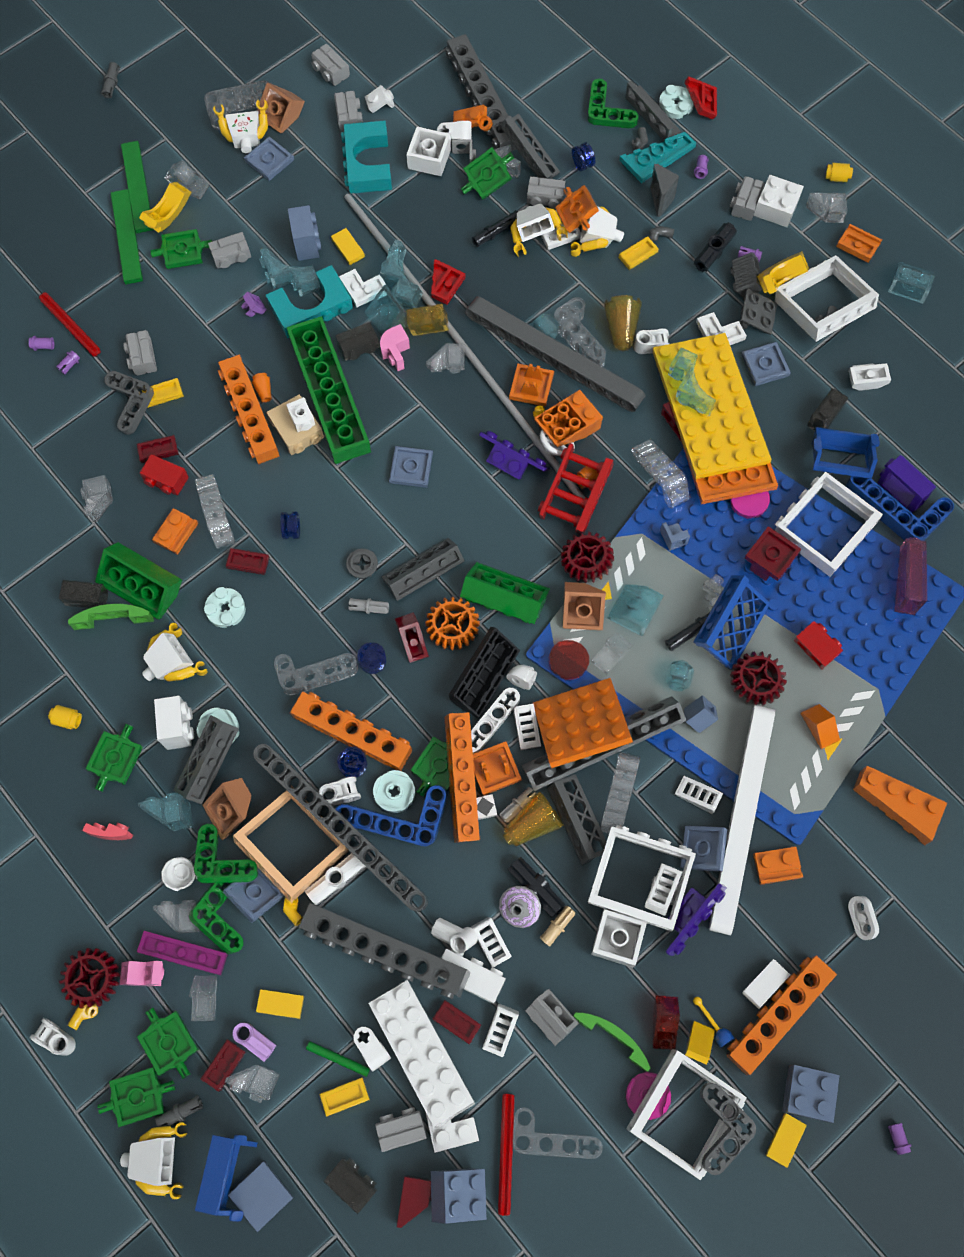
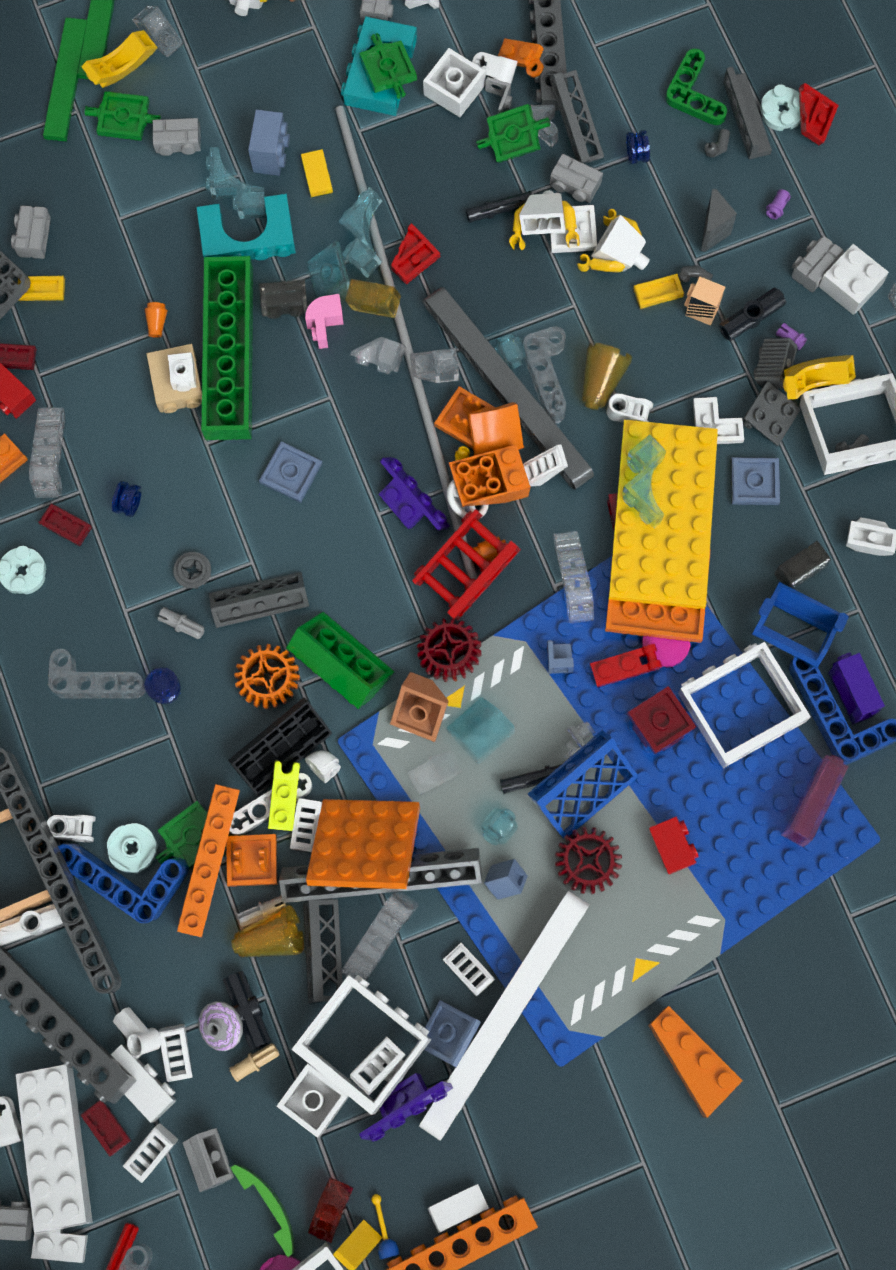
camera: 20 degrees right, 5 degrees up
(254, 304) = (181, 212): medium lavender tile -> none
(263, 450) = (136, 395): orange brick -> none
(269, 158) = (265, 30): sand blue tile -> none
(303, 712) = (65, 721): orange brick -> none
(352, 762) = (98, 799): clear blue wheel -> none
(361, 291) = (313, 237): white plate -> none
(375, 152) = (388, 66): none -> green plate
(411, 637) = (215, 676): dark red slope -> none
(486, 807) = (225, 900): tile -> none
(495, 353) = (435, 365): none -> clear slope
(502, 709) = (283, 797): none -> neon yellow plate
(558, 383) = (495, 428): none -> orange slope
(568, 659) = (381, 764): clear red tile -> none
(576, 208) = (599, 215): orange plate -> none
(602, 396) = (543, 467): none -> white slope
(641, 162) = (730, 173): teal wing -> none
(677, 246) = (704, 300): none -> light nougat brick
(726, 524) = (625, 665): none -> red plate
(778, 865) = (526, 1081): orange plate -> none
(822, 725) = (639, 940): orange slope -> none
(863, 918) = (596, 1175): white plate -> none

